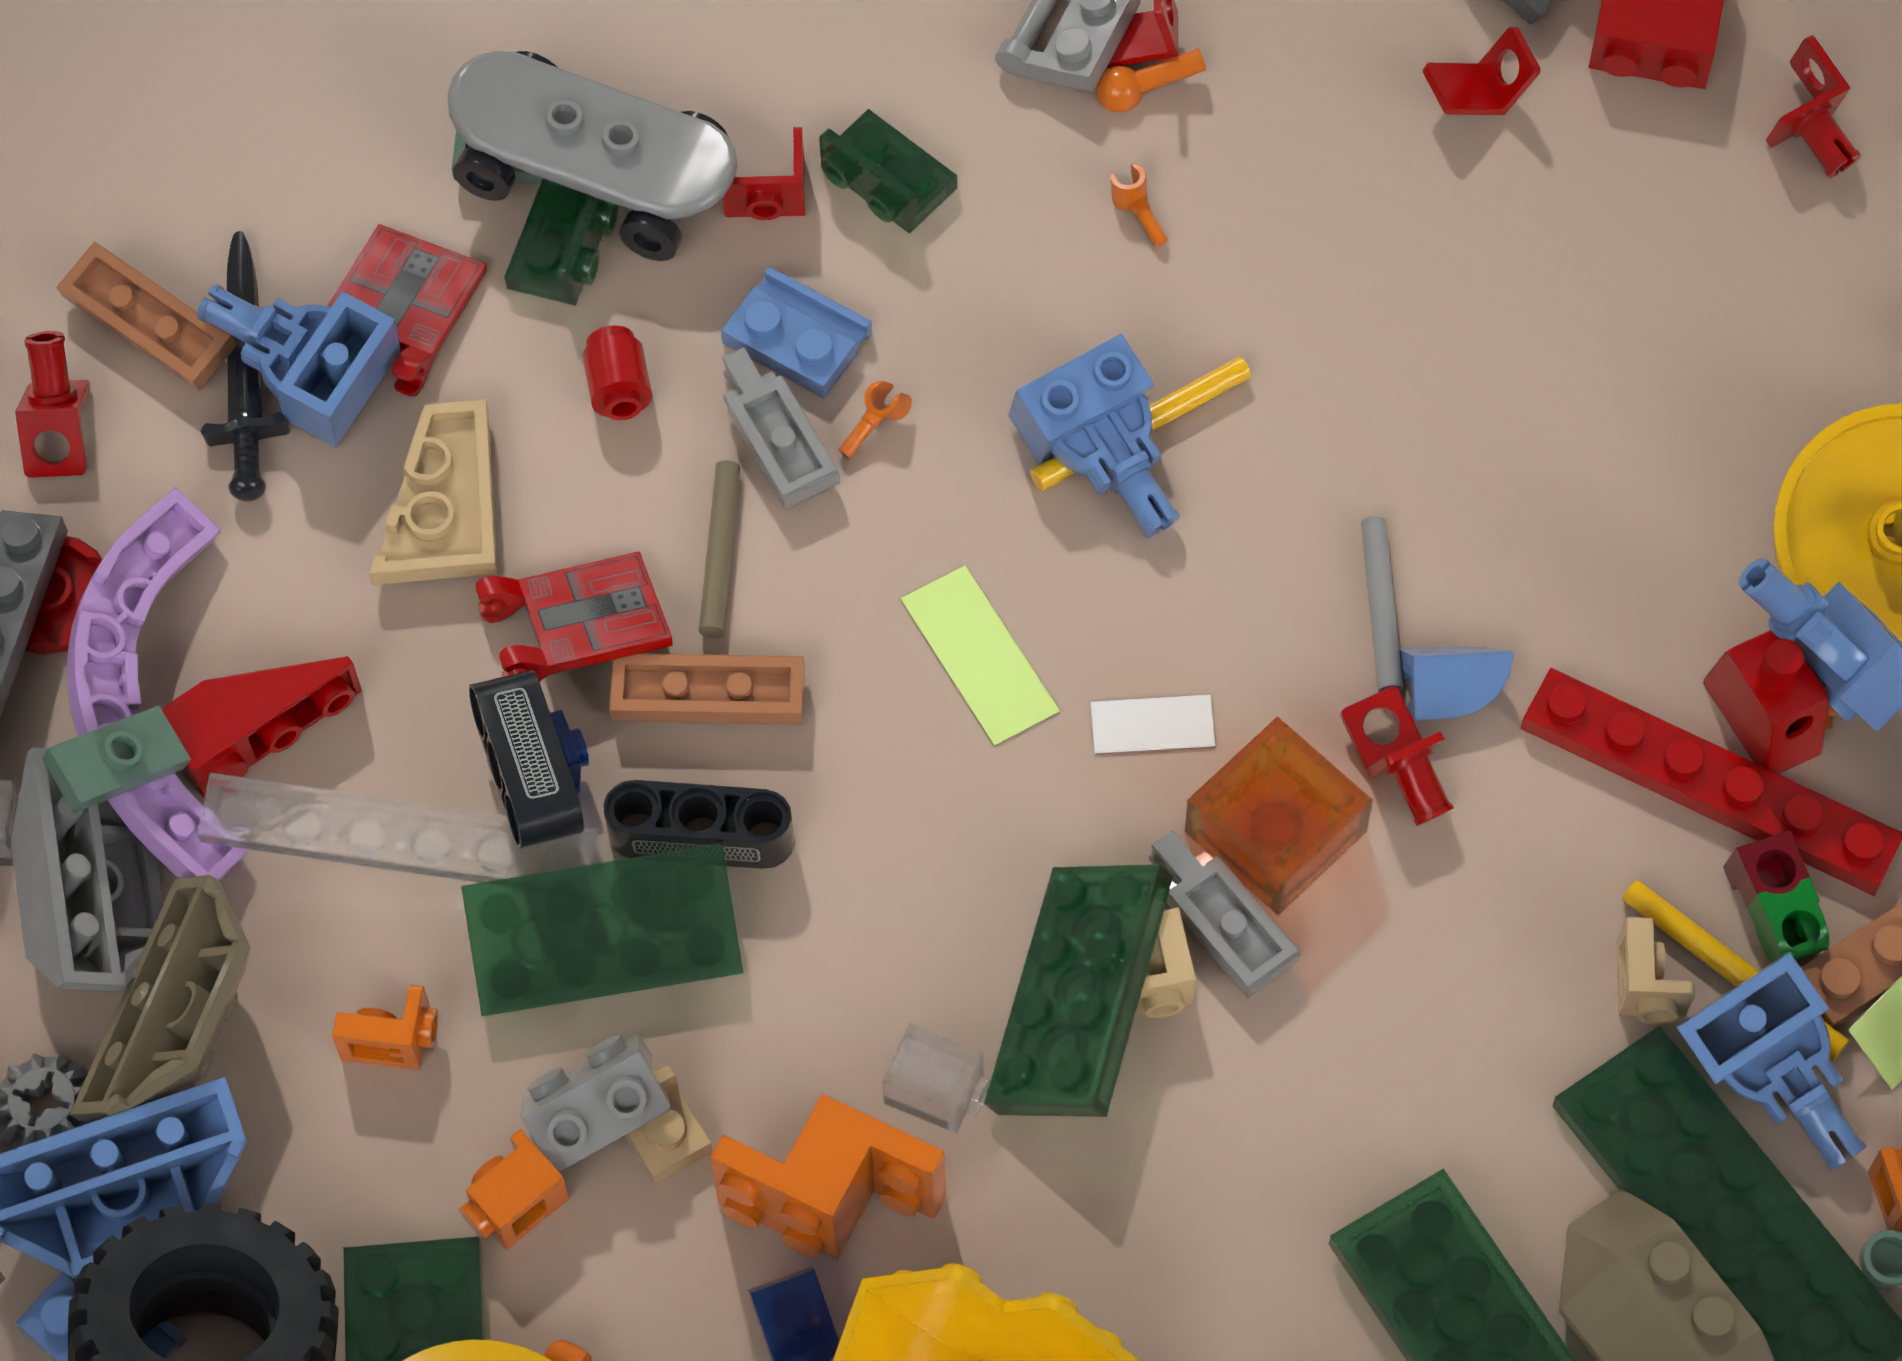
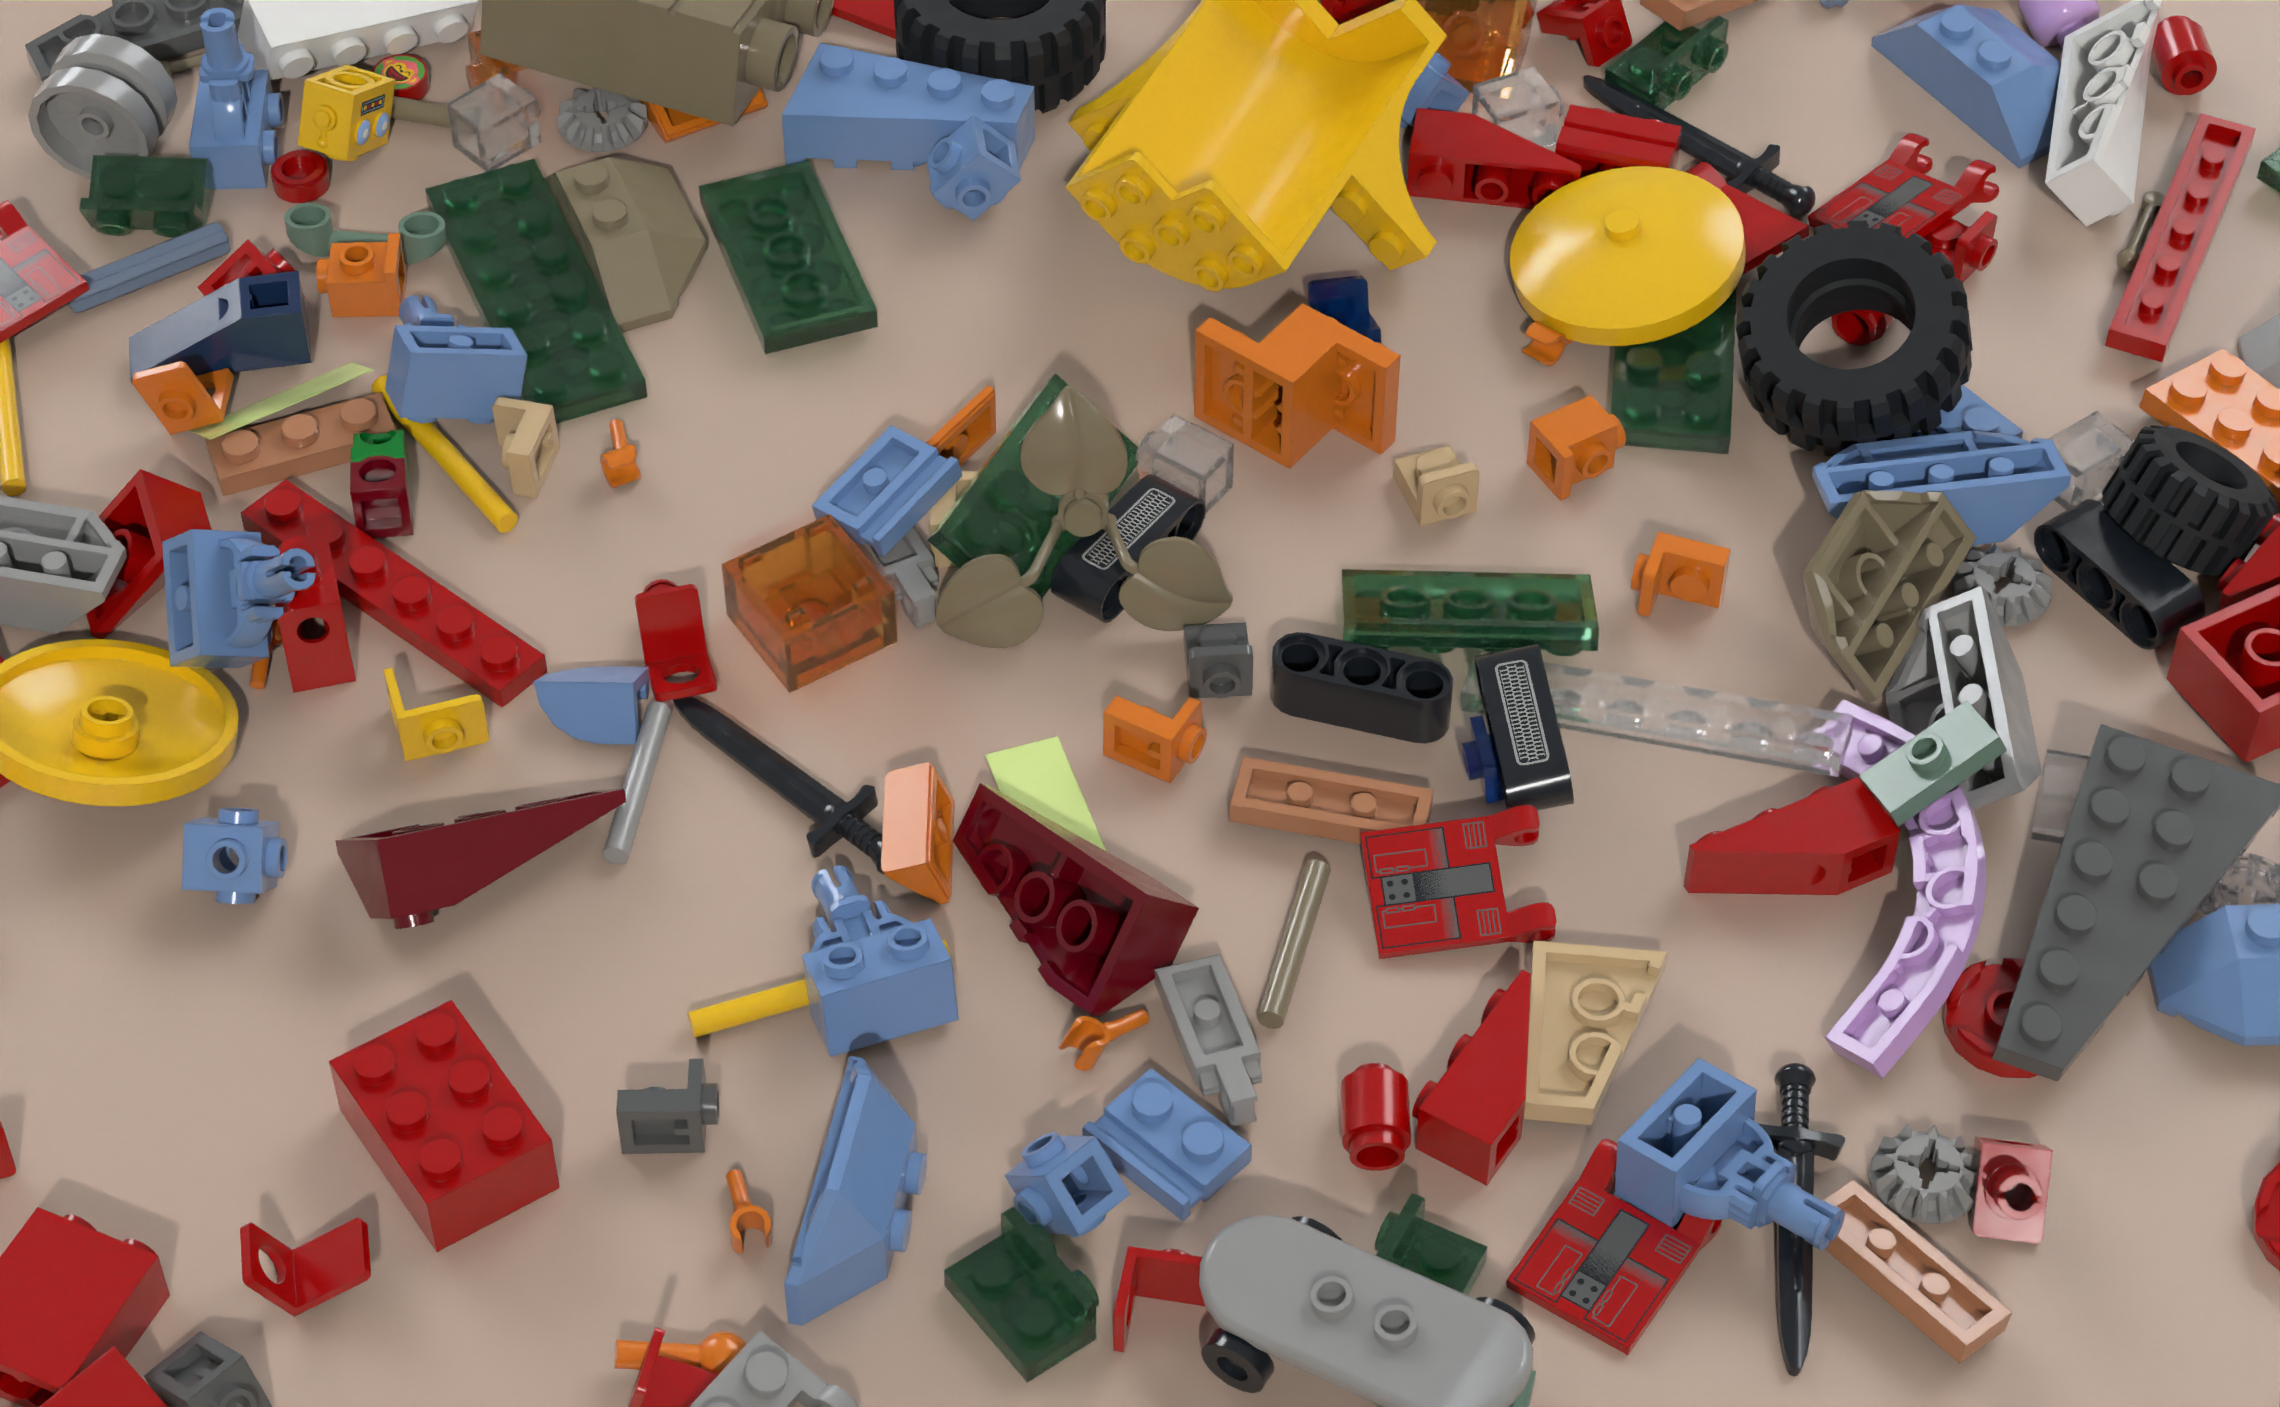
camera: 170 degrees left, 15 degrees down
(145, 437) = (1897, 1180): none -> light grey gear
(524, 401) = (1479, 1102): none -> red slope
(595, 1102) = (1497, 483): light grey bracket -> none
(851, 845) = (1218, 660): none -> dark grey bracket
(869, 242) = (1066, 1184): none -> medium blue brick
(895, 513) = (1078, 908): none -> dark red wedge
(899, 721) = (1151, 740): none -> orange bracket
(972, 957) = (1090, 570): none -> black beam
(1020, 935) = (1081, 459): none -> dark tan plant
(1045, 221) = (856, 1199): none -> medium blue wedge
(1093, 577) = (918, 831): none -> slope
(1152, 724) = (898, 729): white sticker -> none
(1204, 1074) = (968, 428): none -> orange slope
(1229, 627) = (833, 815): none -> black sword
(1230, 255) = (668, 1118): none -> dark grey bracket
(1233, 933) = (888, 489): none -> medium blue plate
(1417, 210) = (444, 1125): none -> red brick
(1516, 477) = (438, 865): none -> dark red wedge
(1536, 988) = (619, 464): none -> orange hand
(1594, 602) = (437, 726): none -> yellow bracket
(1716, 421) = (212, 860): none -> medium blue brick

